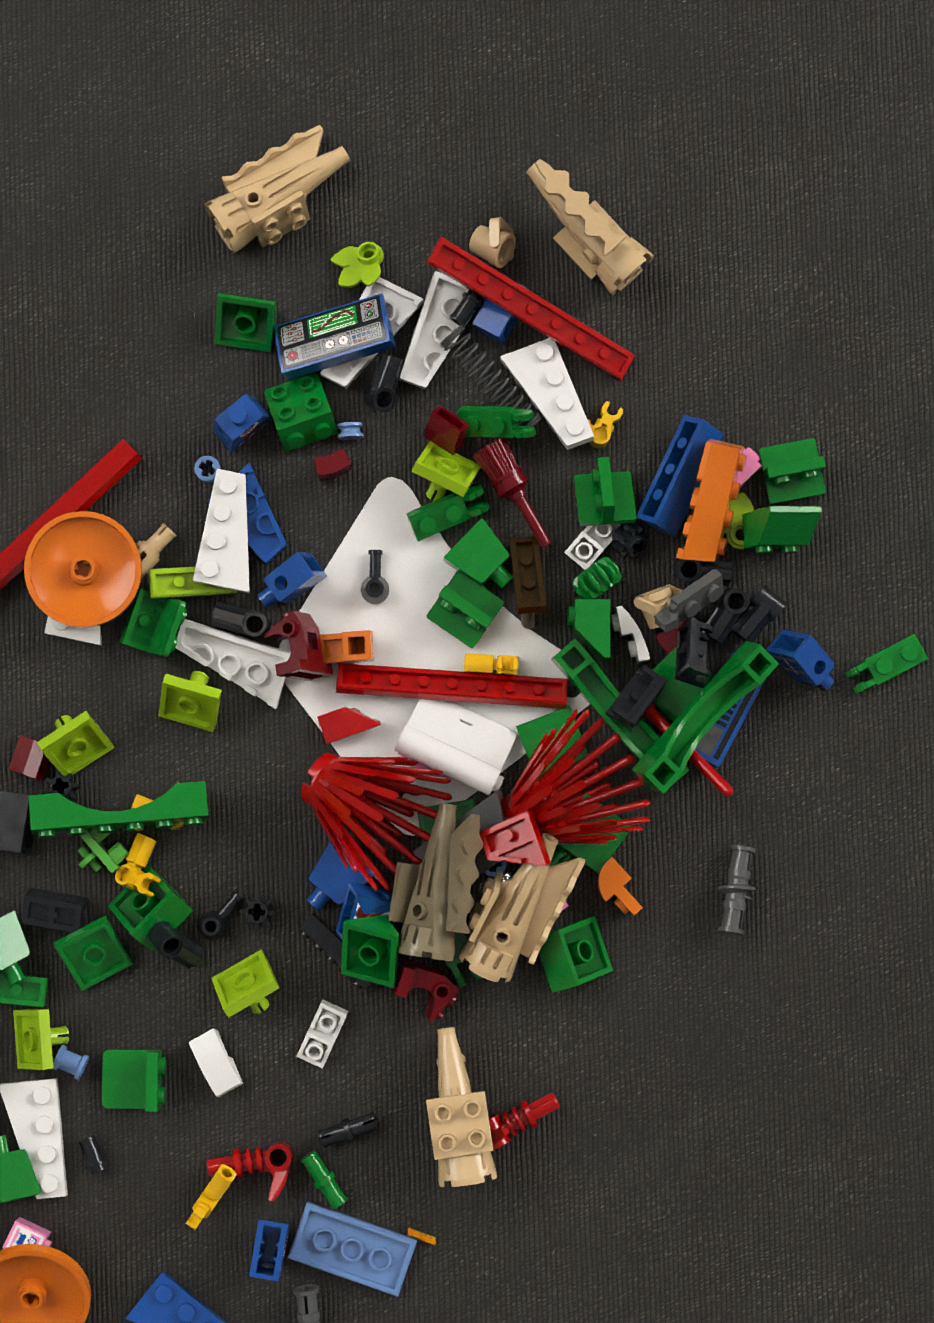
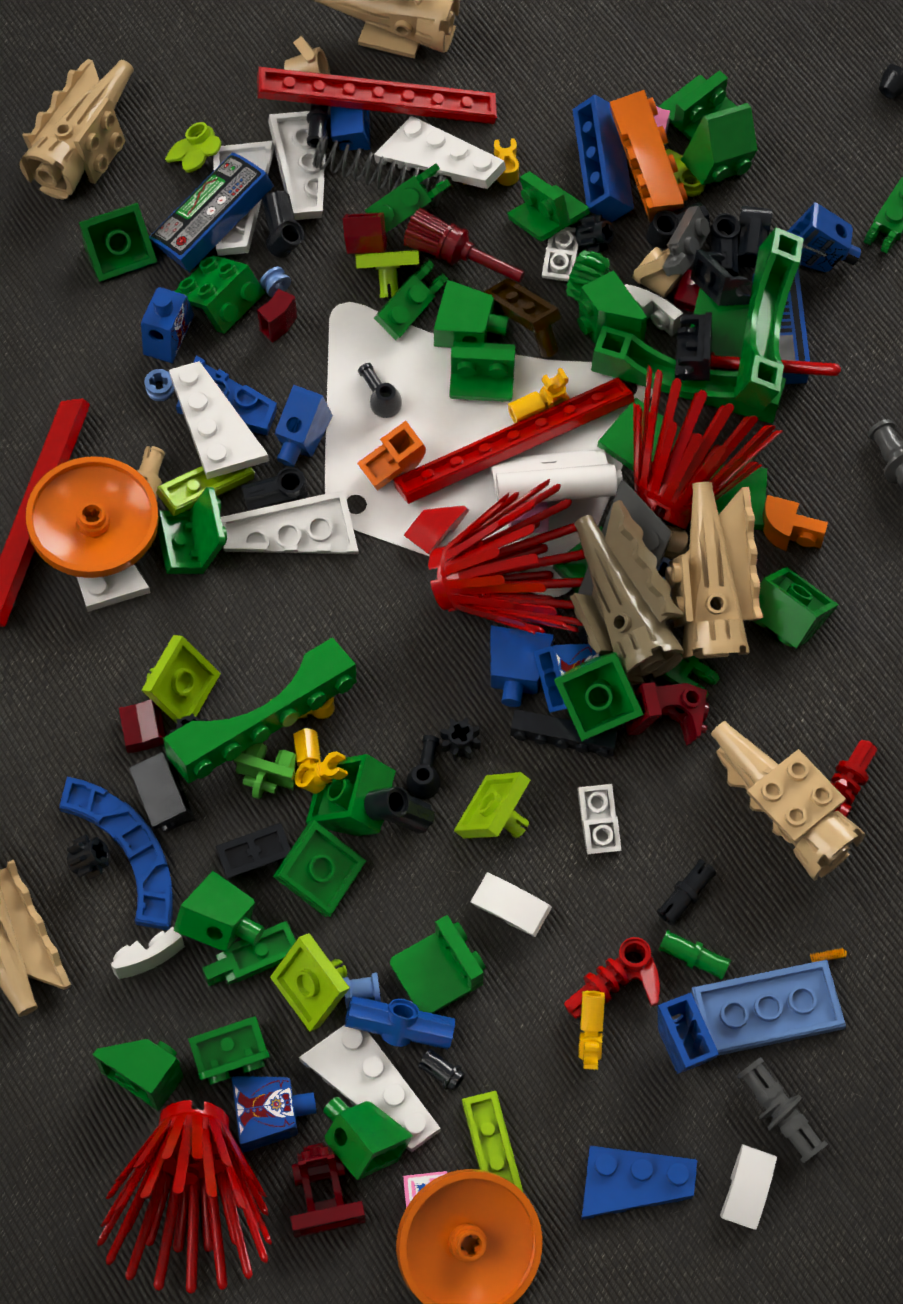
camera: 25 degrees left, 20 degrees down
(93, 1117) = (399, 1022): none -> blue piece
(96, 1228) = (490, 1136): none -> lime tile
(190, 701) = (271, 582): lime tile -> none
(306, 650) = (335, 462): dark red tile -> none
(516, 841) = (671, 504): wing -> none

